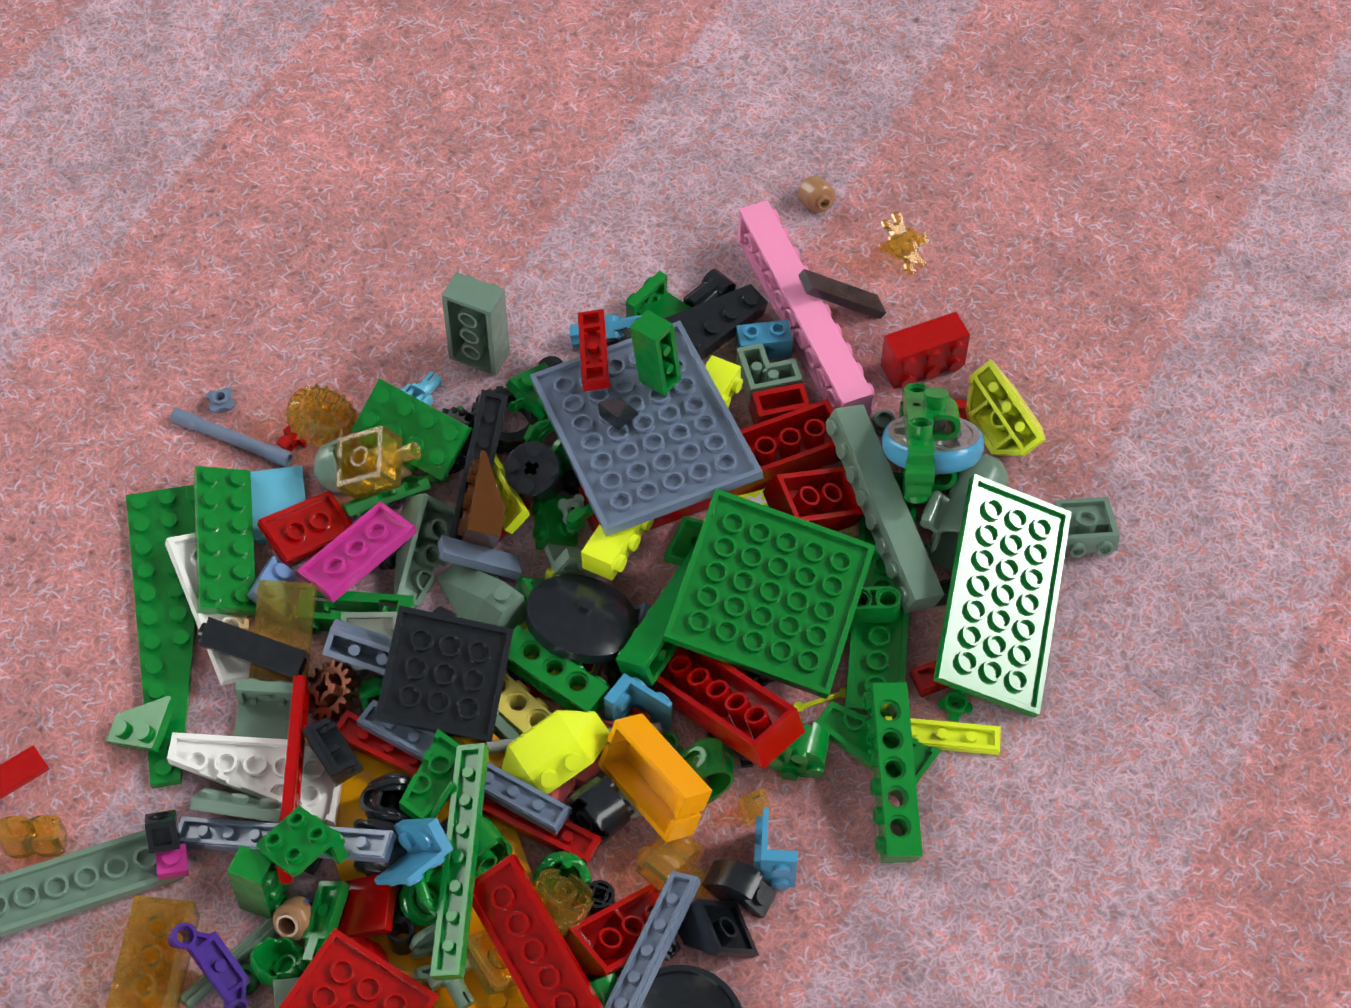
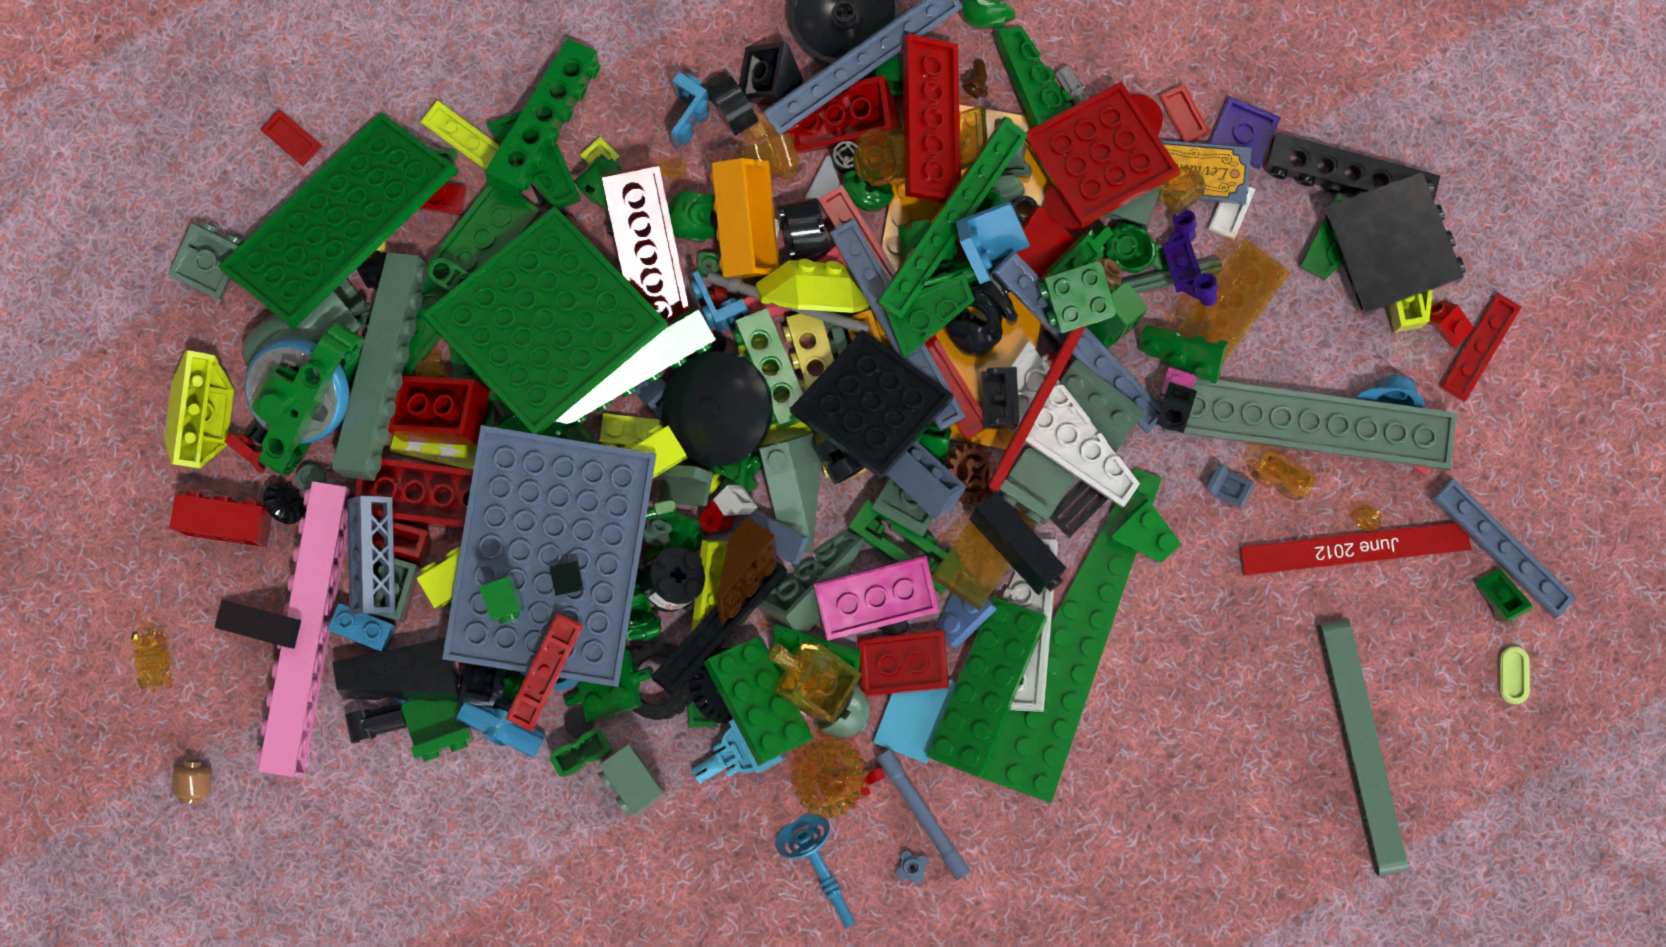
camera: 155 degrees left, 25 degrees up
(80, 807) = (1230, 487): none -> sand blue bracket
(182, 887) = (1189, 354): none -> green wing
(223, 705) = (1062, 525): none -> black tile
(313, 371) = (809, 847): none -> dark azure dish
(524, 561) = (725, 508): none -> leg
(534, 341) = (574, 757): none -> green brick
(605, 866) = (824, 181): none -> sand blue tile
(646, 583) = (625, 429): none -> neon yellow plate
(798, 368) = (361, 558): none -> sand blue fence
(827, 786) = (596, 149): none -> neon yellow tile
(886, 379) = (280, 510): none -> black gear
(1098, 657) = (291, 138): none -> red tile

